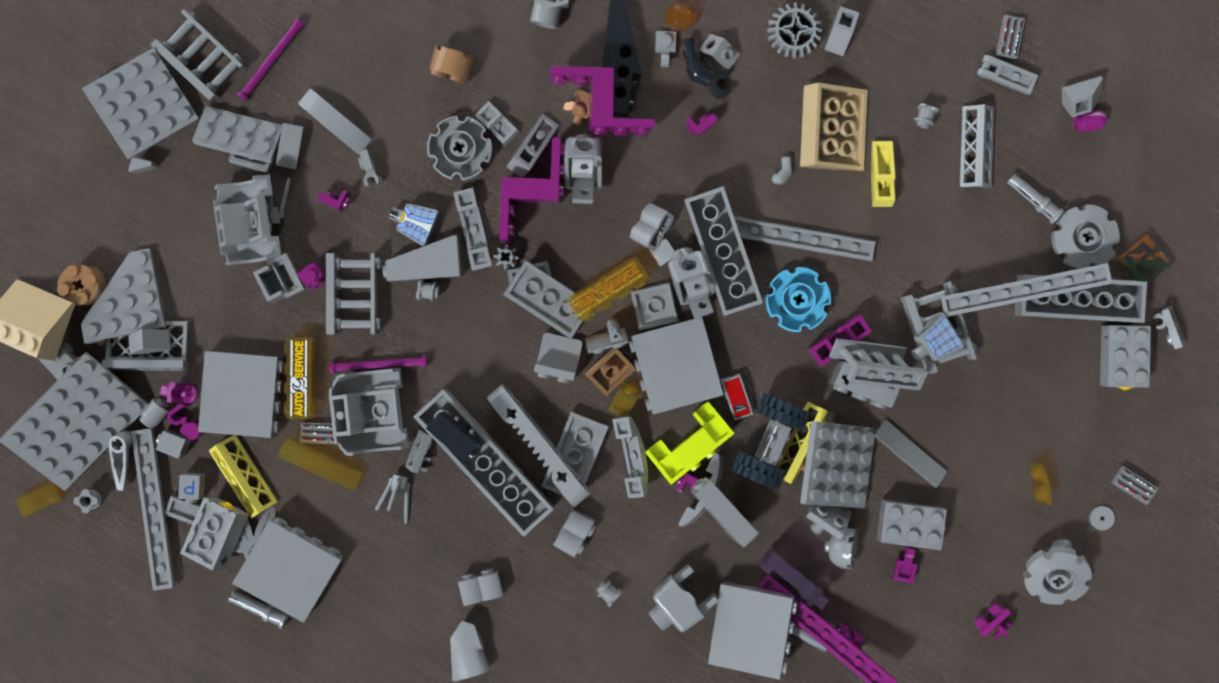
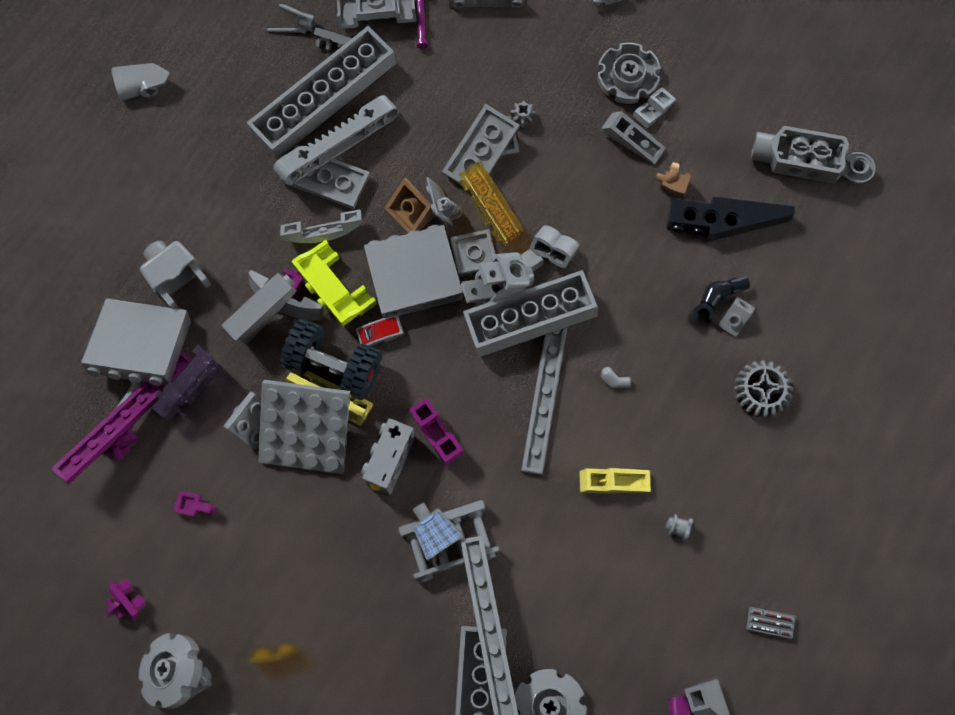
camera: 90 degrees right, 15 degrees down
(416, 222) = (554, 35): torso -> none
(427, 290) = (490, 44): light grey brick -> none
(428, 262) = (518, 48): light grey slope -> none
(451, 63) = (709, 62): medium nougat brick -> none
(454, 436) = (347, 52): black brick -> none
(473, 229) = (550, 87): light grey slope -> none
(480, 587) = (200, 91): light grey brick -> none
(531, 191) = (590, 149): magenta bracket -> none
(558, 357) = (422, 160): light grey bracket -> none
(574, 532) = (248, 175): light grey brick -> none
(583, 166) = (620, 170): light grey piece -> none
(600, 100) = (681, 187): magenta bracket -> none
(608, 592) = (186, 207): light grey brick -> none
(624, 399) = (380, 222): clear yellow bracket -> none
(665, 44) = (740, 262): light grey plate -> none
(679, 17) = (770, 274): clear orange head -> none
(705, 124) = (659, 298): magenta bracket -> none
(814, 297) = (475, 376): medium azure piece -> none
(833, 127) = (663, 430): tan slope -> none
(841, 31) = (766, 435): light grey slope -> none
(843, 550) = (215, 438): light grey cylinder -> none
(878, 364) = (397, 461): light grey fence -> none
(910, 453) = (313, 510): light grey slope -> none
(911, 524) = (236, 509): light grey piece -> none
(984, 146) = (648, 589): light grey fence -> none
(1007, 75) = (728, 619): light grey plate -> none
(1042, 204) = (586, 656): light grey pin -> none

